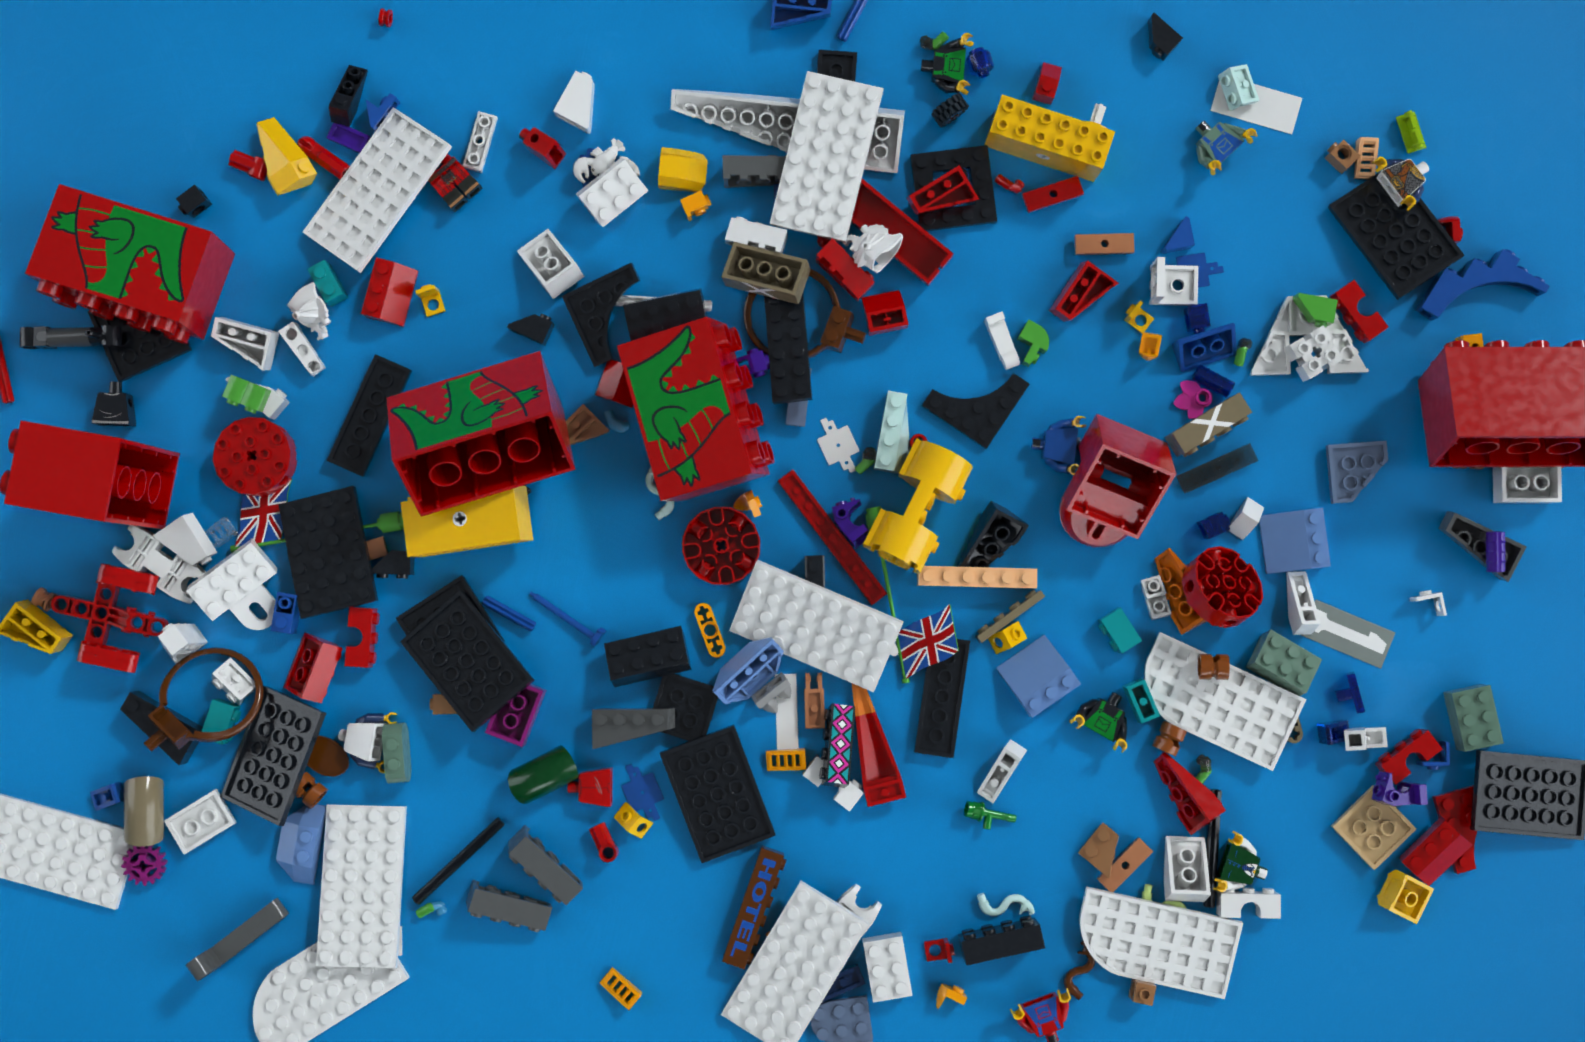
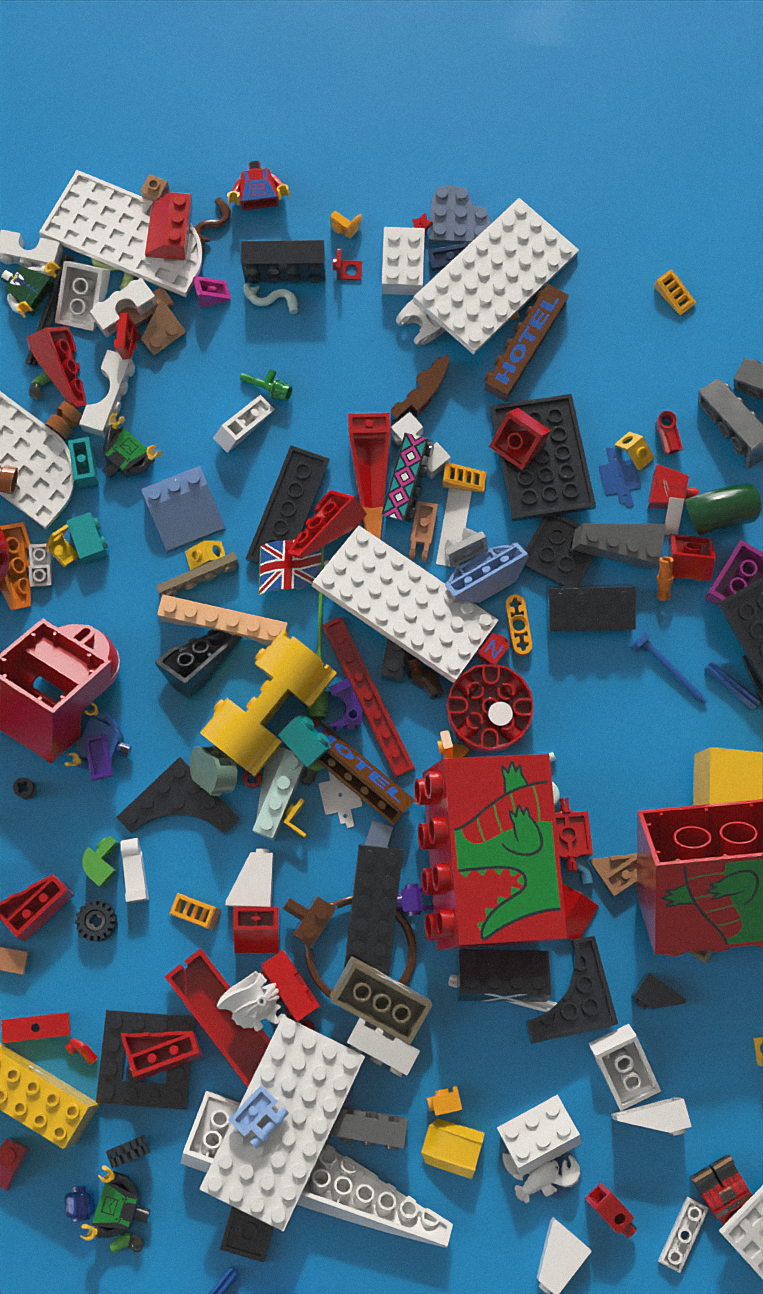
camera: 170 degrees left, 10 degrees down
(516, 227) = (665, 1115): none -> white slope
(564, 725) = (692, 557): none -> red slope
(585, 698) = (664, 578): none -> orange pin
(586, 760) = (673, 515): none -> white sticker
(629, 449) = (573, 834): none -> red plate
(710, 540) = (500, 713): none -> white sticker
(727, 601) = (493, 649): none -> red brick
(741, 804) = (519, 438): none -> red slope
(785, 562) = (424, 677): none -> dark brown arm
(830, 465) = (363, 777): none -> reddish brown brick
(836, 844) = (428, 385): none -> reddish brown slope
(852, 156) = (253, 1111): none -> light blue plate
(877, 418) = (291, 813): none -> yellow bracket
(877, 1010) = (422, 222): none -> red piece
(878, 478) = (305, 740): none -> teal brick
(895, 352) = (254, 882): none -> white slope
(899, 691) = (334, 517): none -> red wedge
(924, 320) = (212, 916): none -> light orange slope
(953, 435) = (213, 770): none -> sand green brick
(1020, 301) = (102, 911): none -> black bush
(1057, 429) = (98, 757): none -> dark purple tile
(1063, 898) = (210, 291): none -> dark pink slope
(1119, 953) = (169, 227): none -> red slope
(1120, 389) = (26, 782): none -> black bush
(1132, 799) = (117, 371): none -> white arch
(1132, 835) = (126, 336): none -> red wing
(1140, 615) = (61, 548): none -> yellow bracket
(1156, 852) = (135, 295): none -> white arch

